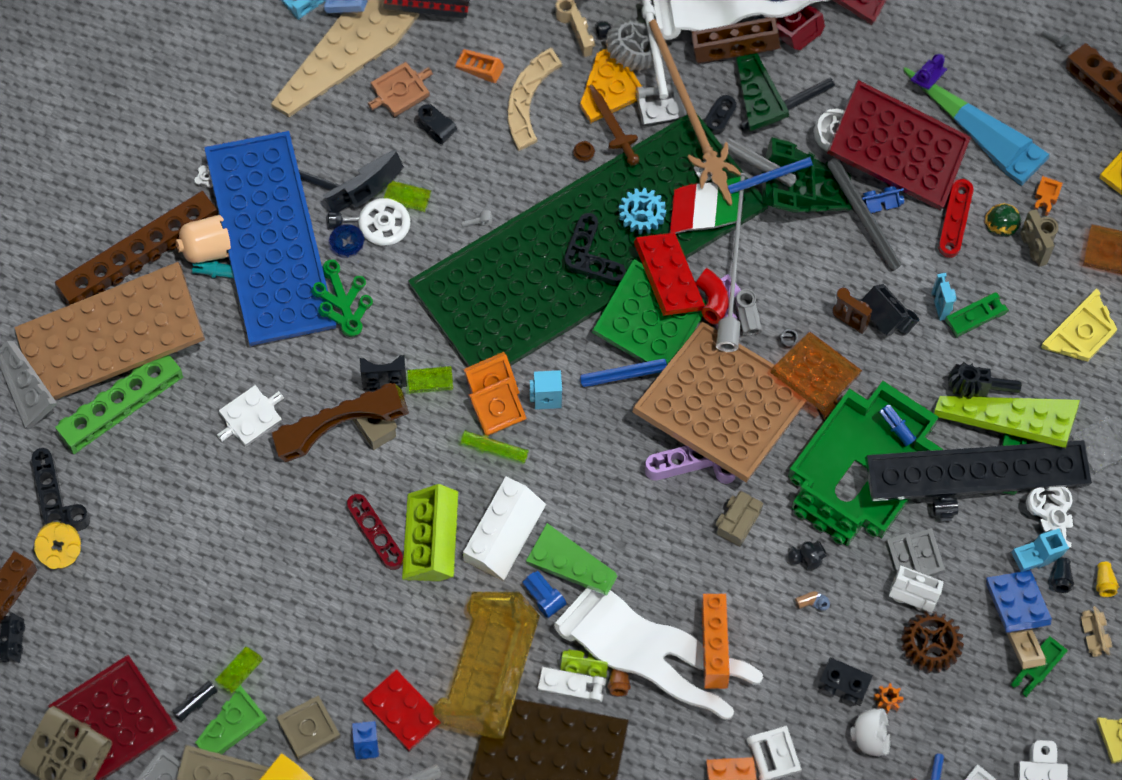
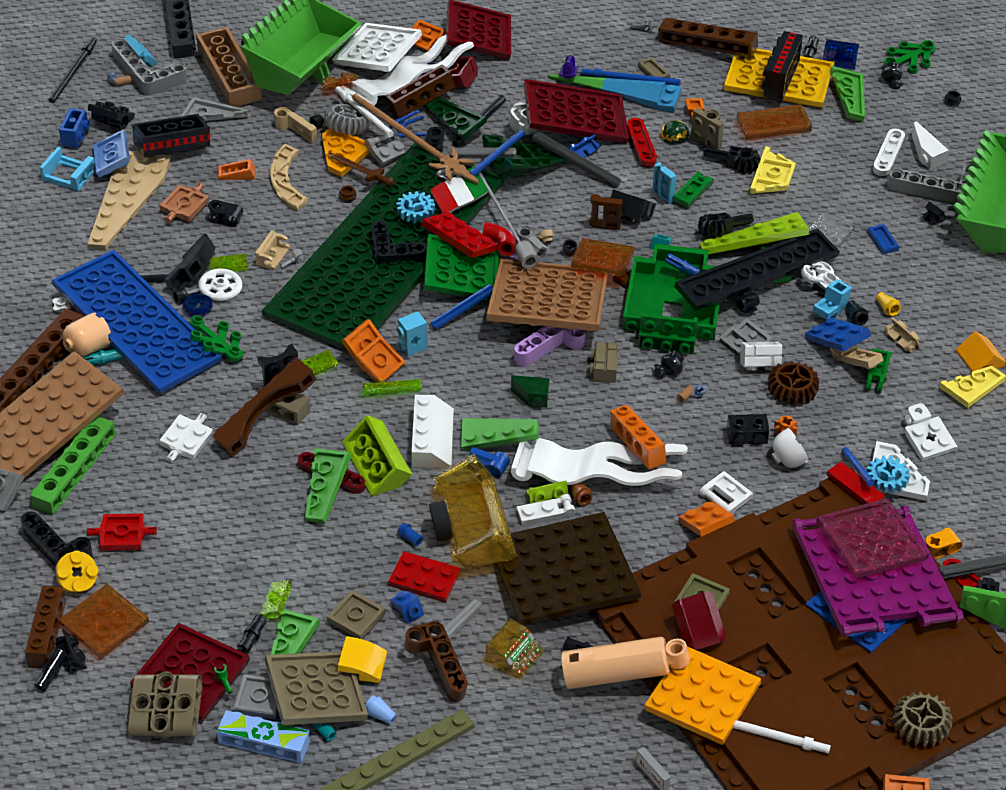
camera: 25 degrees left, 20 degrees down
(59, 615) = (104, 621): none -> clear orange plate
(128, 511) = (122, 531): none -> red plate
(137, 747) = (222, 676): none -> green hand
(365, 538) = (327, 475): none -> bright green wing
(414, 650) = (406, 531): none -> blue pin
(449, 653) = (440, 520): none -> black tyre
(460, 200) = (271, 251): none -> tan hinge
(640, 522) = (531, 390): none -> dark green slope
(689, 78) = (401, 121): none -> blue plant
(771, 309) = (546, 235): none -> tan plate
(897, 374) = (660, 239): none -> teal slope
(965, 91) = (616, 75): none -> blue bar
(1032, 112) = (652, 68): none -> dark tan tile
(1051, 288) = (737, 157): none -> black gear

